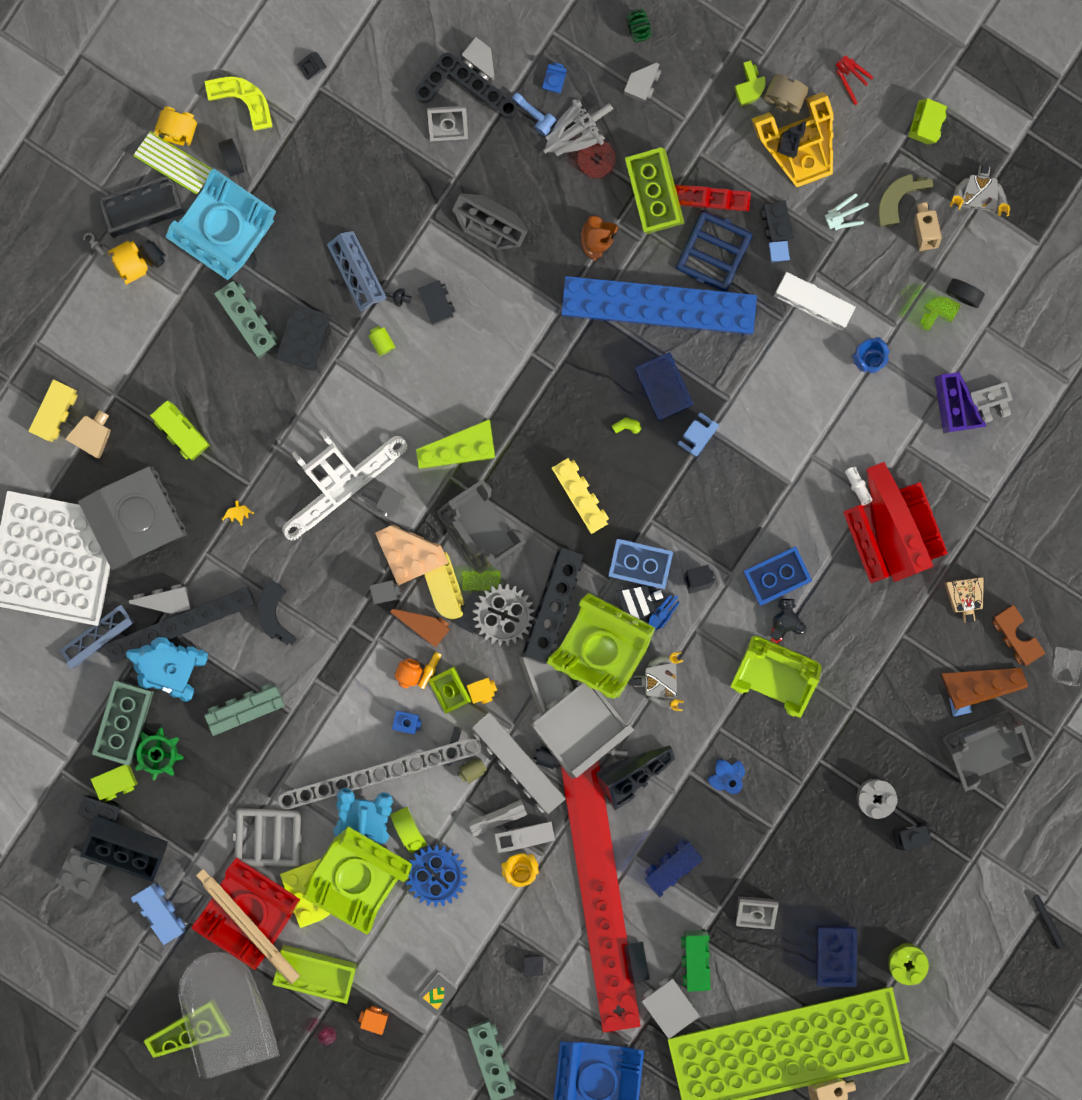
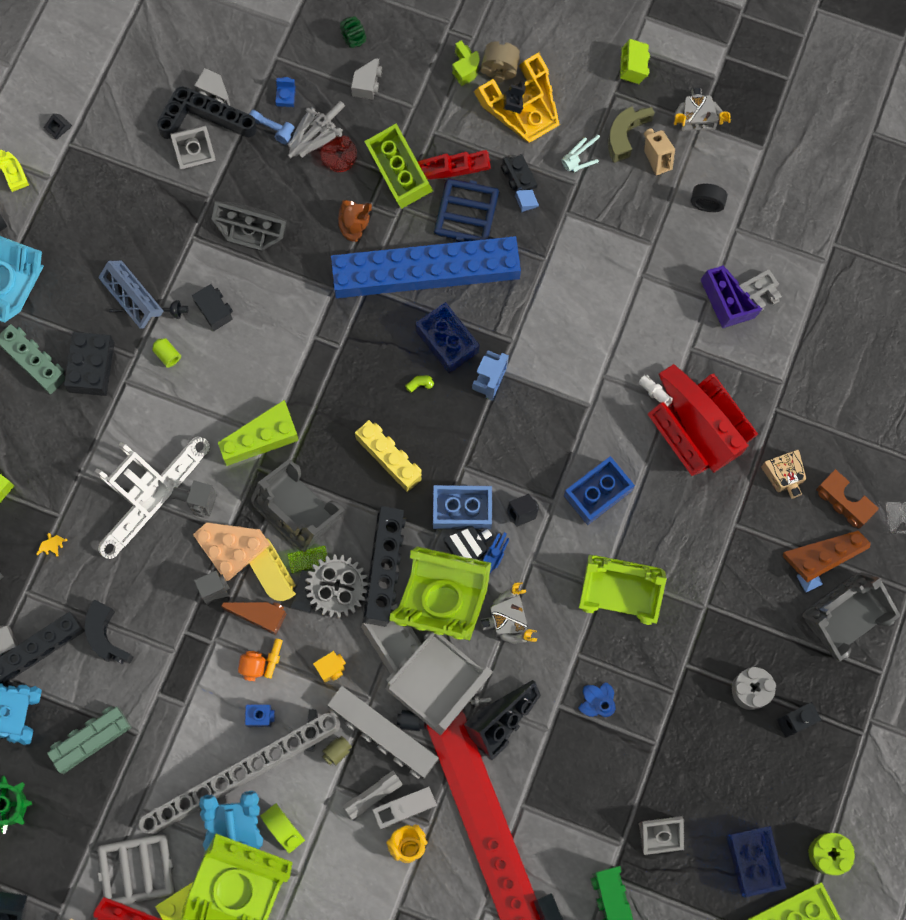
camera: 15 degrees left, 15 degrees down
(423, 887) = (310, 886): blue gear -> none
(450, 690) = (297, 673): lime slope -> none
(672, 867) = (564, 806): clear blue wedge -> none
(786, 620) = (618, 533): black animal -> none
(814, 301) = (571, 232): white brick -> none
(847, 66) = (549, 32): red plant -> none
(871, 355) = (636, 270): blue hair -> none
(943, 308) = (689, 217): clear neon green brick -> none

